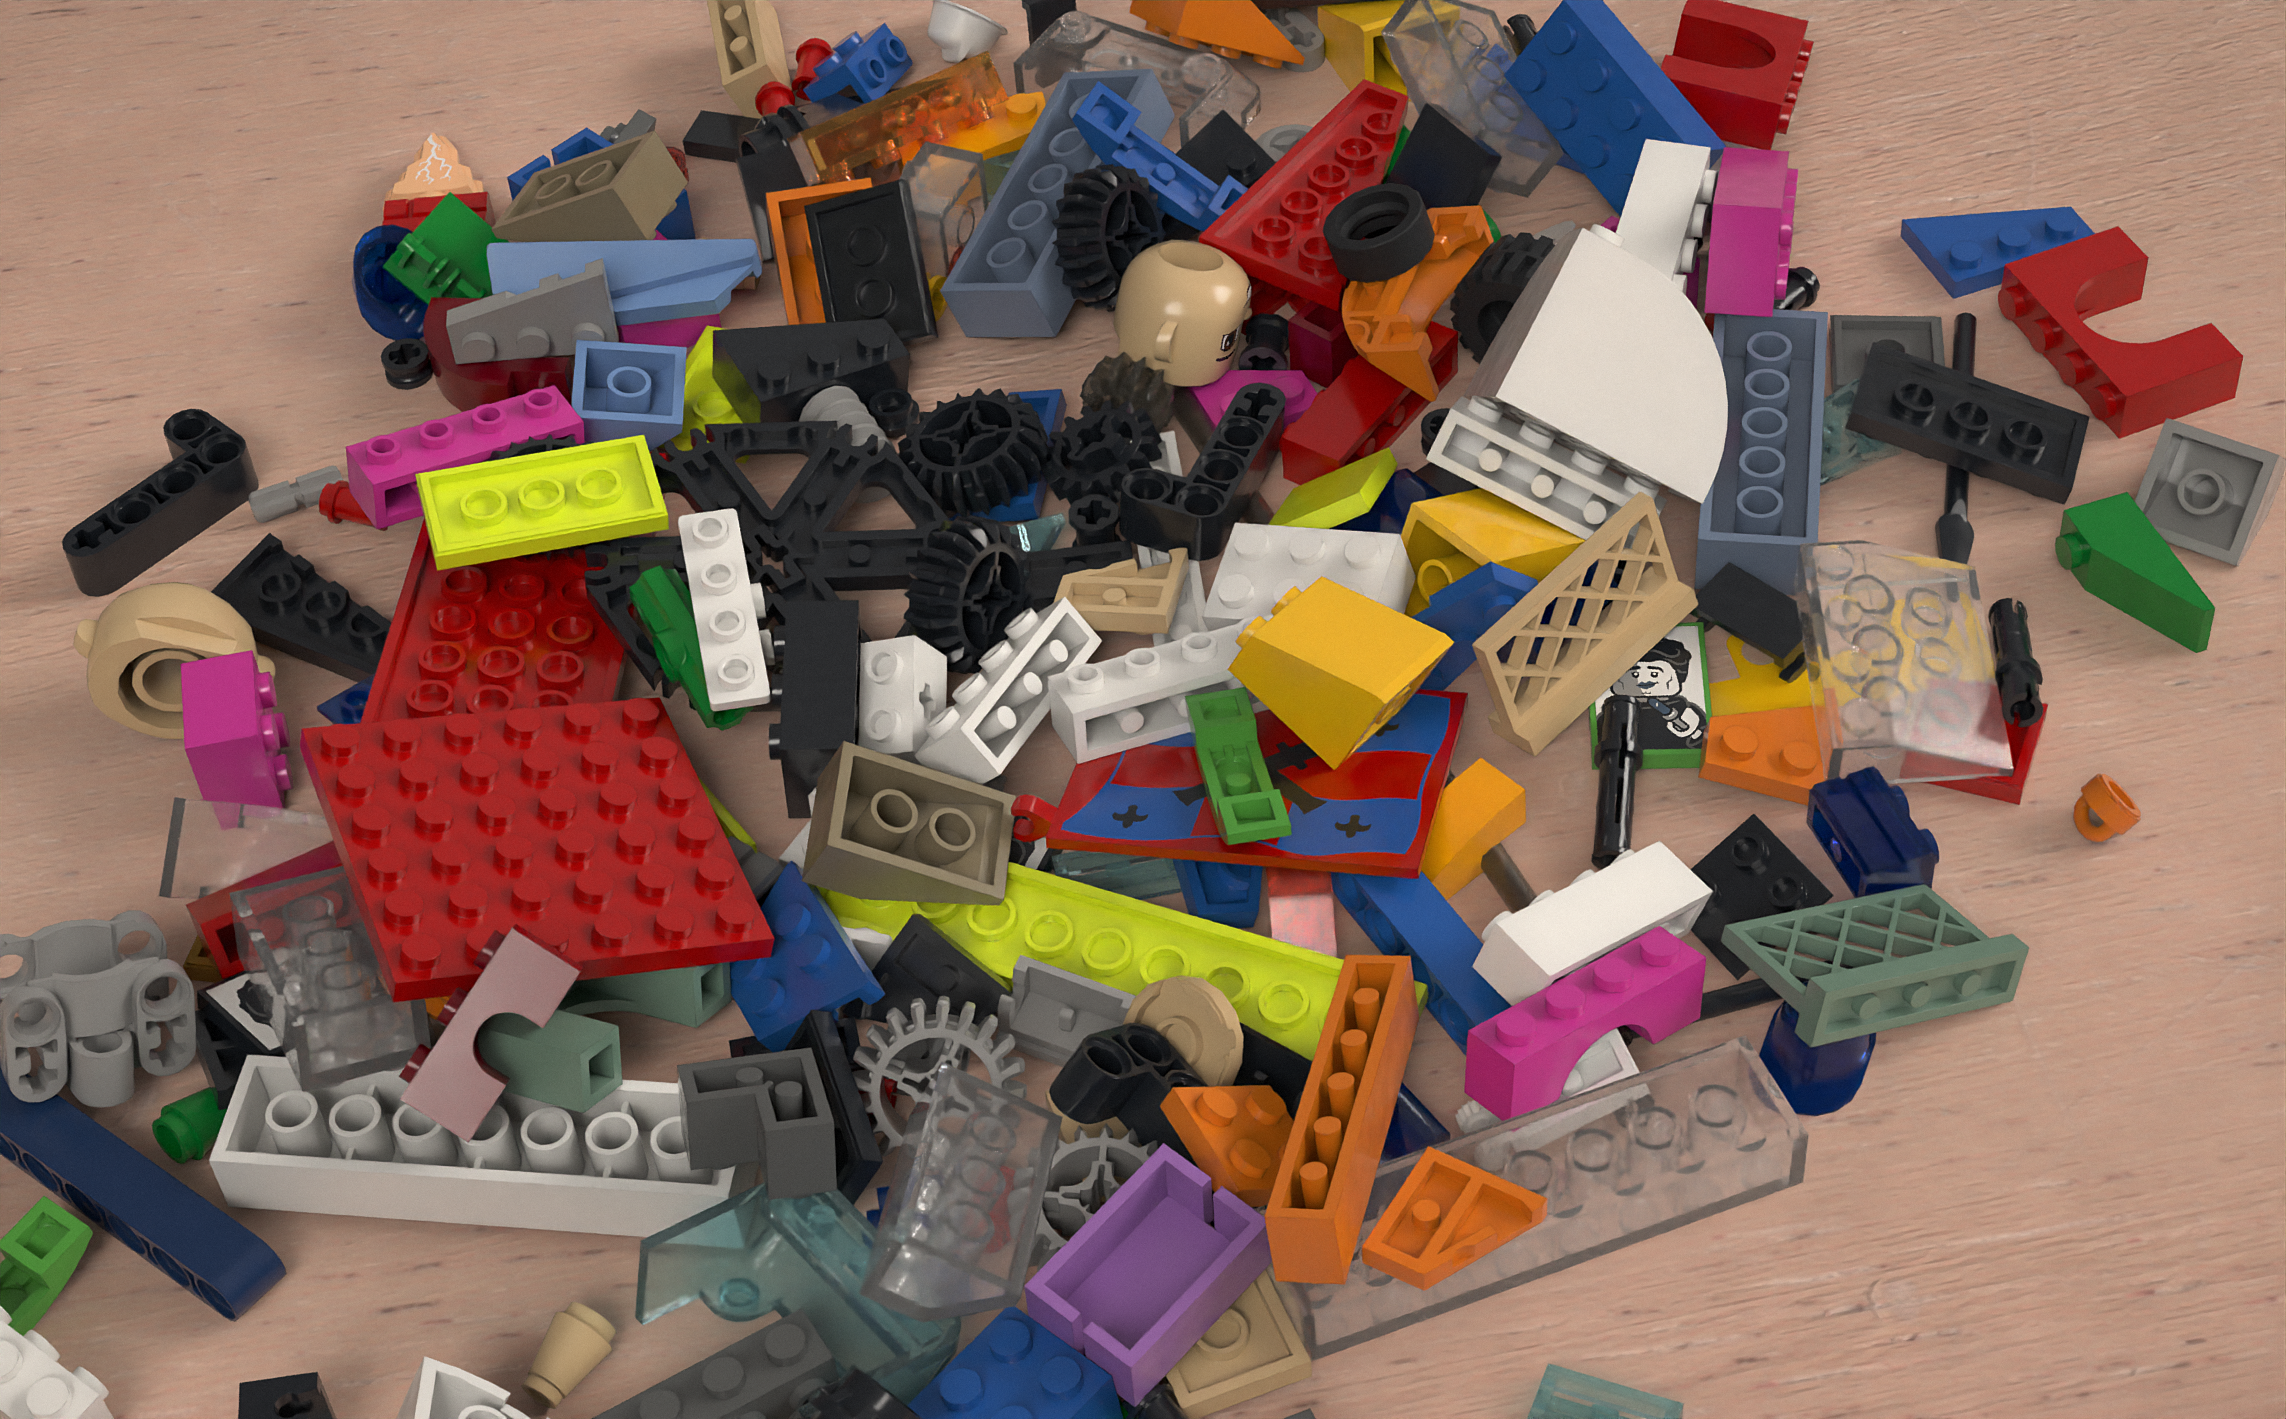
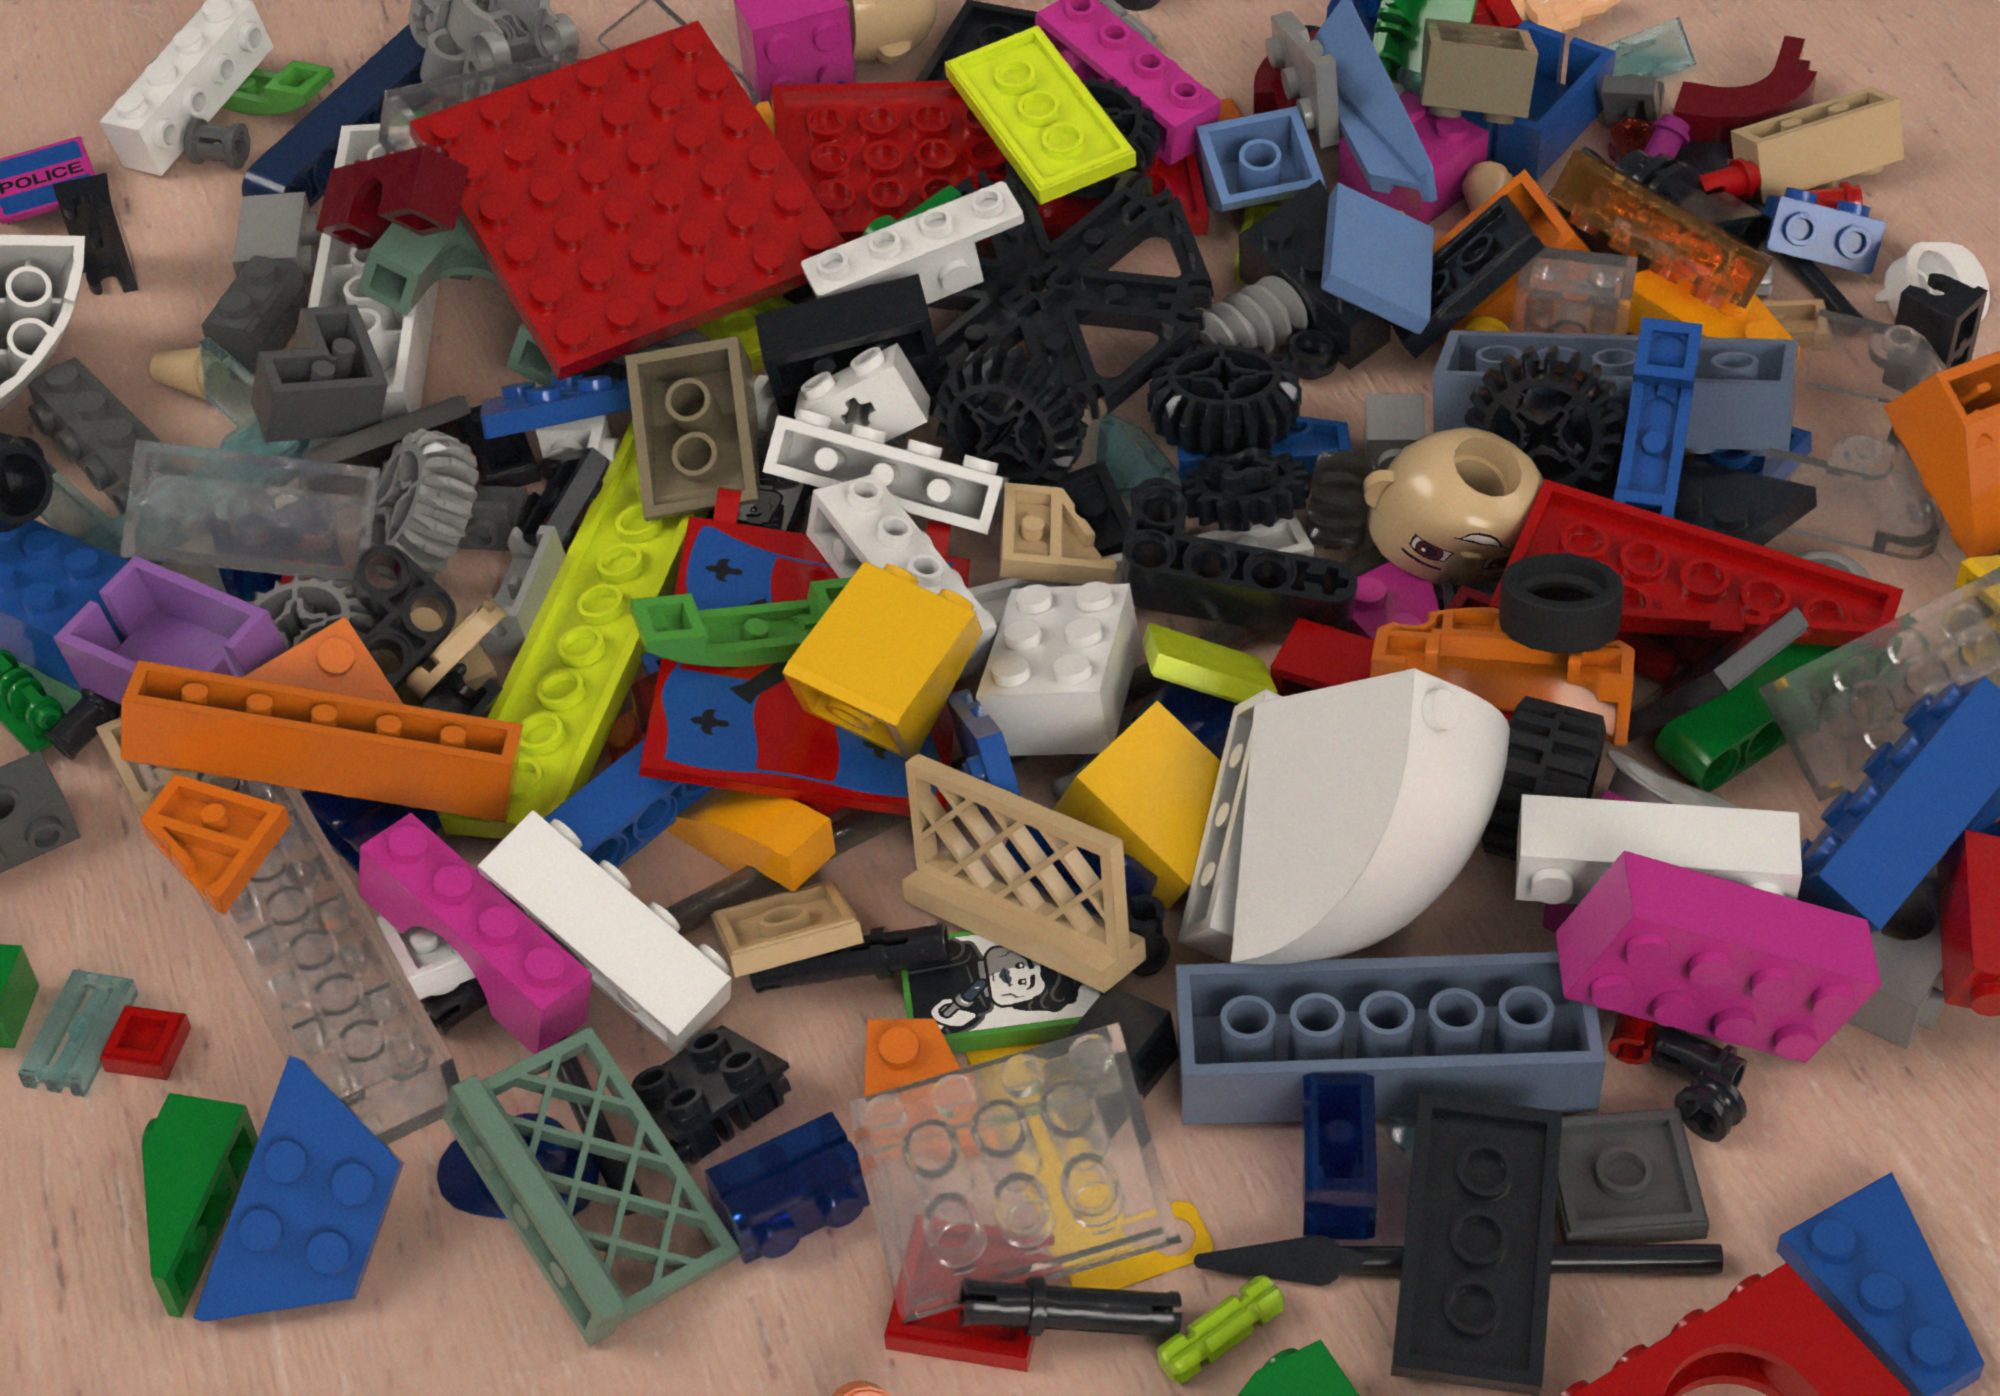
camera: 80 degrees right, 0 degrees up
(107, 1343) = (233, 139): none -> dark grey bush
(361, 1271) = (278, 229): none -> light grey brick
(499, 1278) = (257, 310): none -> dark grey brick
(531, 135) = (1653, 51): none -> clear light blue slope
(659, 66) = (1719, 110): none -> dark red arch
(700, 144) = (1668, 136): none -> magenta pin
(840, 310) = (1378, 259): none -> medium blue tile
(1039, 361) = (1391, 425): none -> light grey brick
(1582, 819) = (786, 928): none -> tan tile
(1627, 1353) = (145, 1042): none -> red tile
(1834, 294) = (1710, 1106): none -> black bush
(1837, 1291) = (191, 1178): none -> green slope
(1880, 487) = (1339, 1156): none -> clear blue brick
(1889, 1176) = (303, 1207): none -> blue wing
(2015, 583) = (1220, 1329): none -> lime axle

